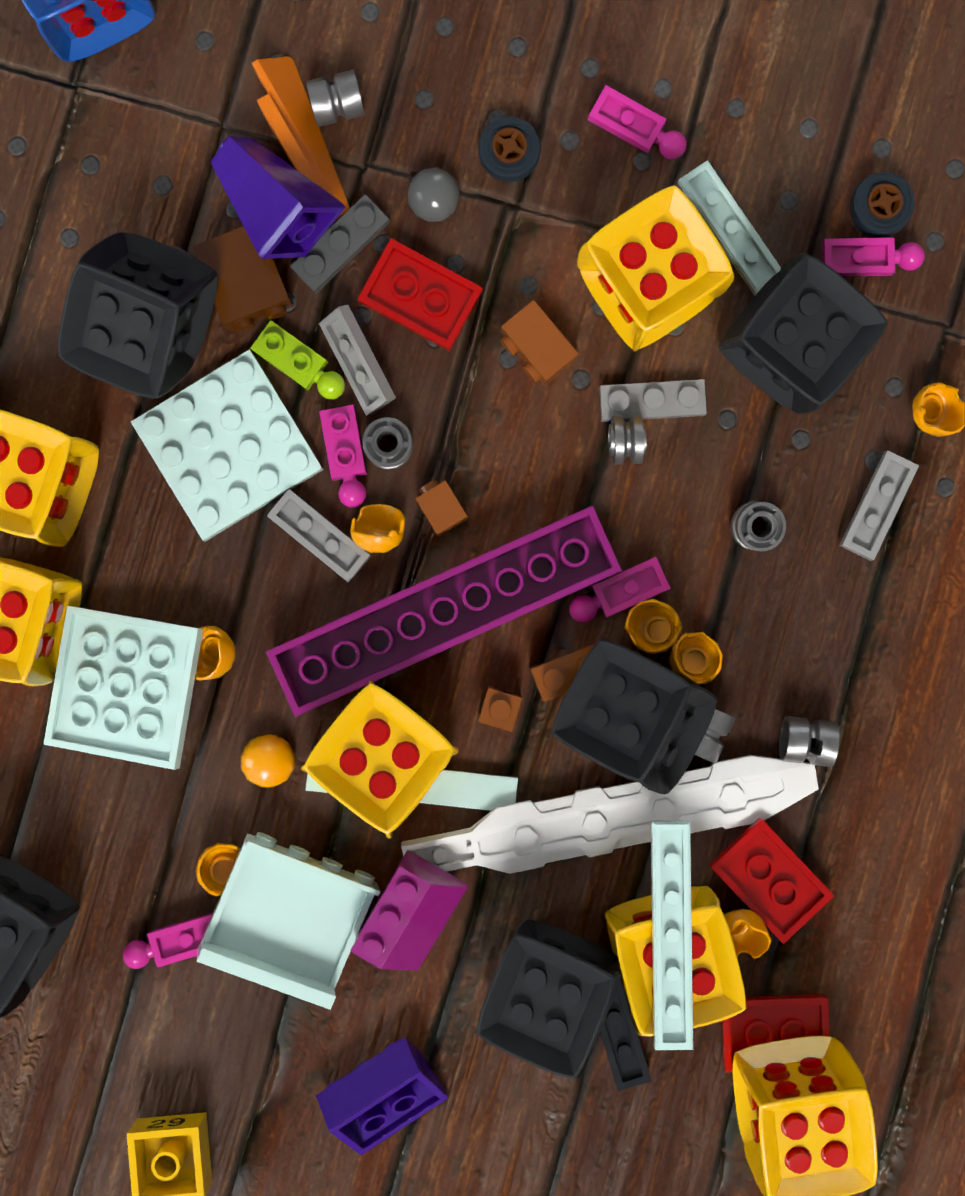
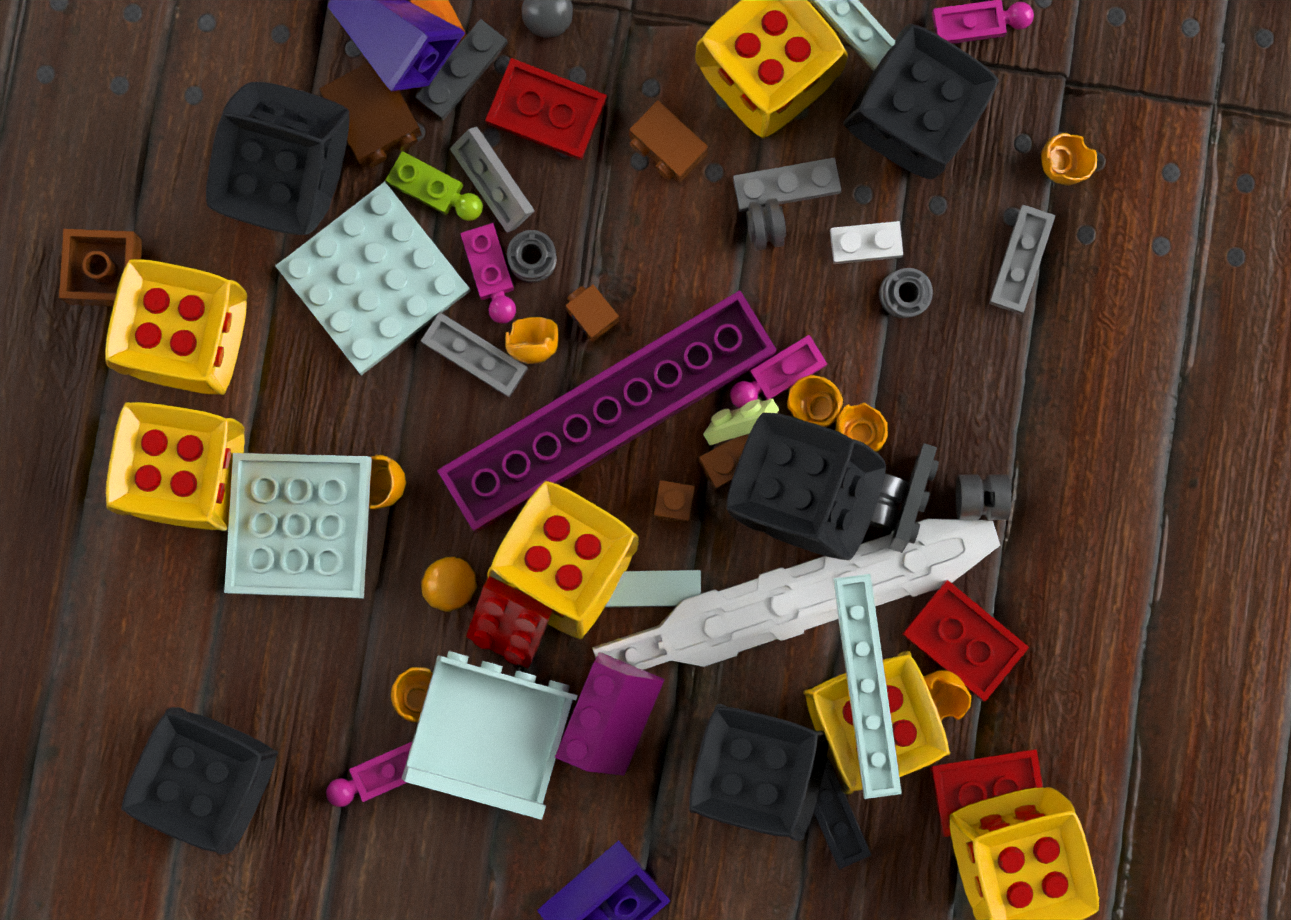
camera: 10 degrees left, 5 degrees down
(317, 814) = (508, 622): none -> red plate
(575, 637) = (738, 422): none -> yellowish green plate
(725, 469) = (866, 242): none -> white plate
(741, 735) = (914, 499): none -> dark grey plate

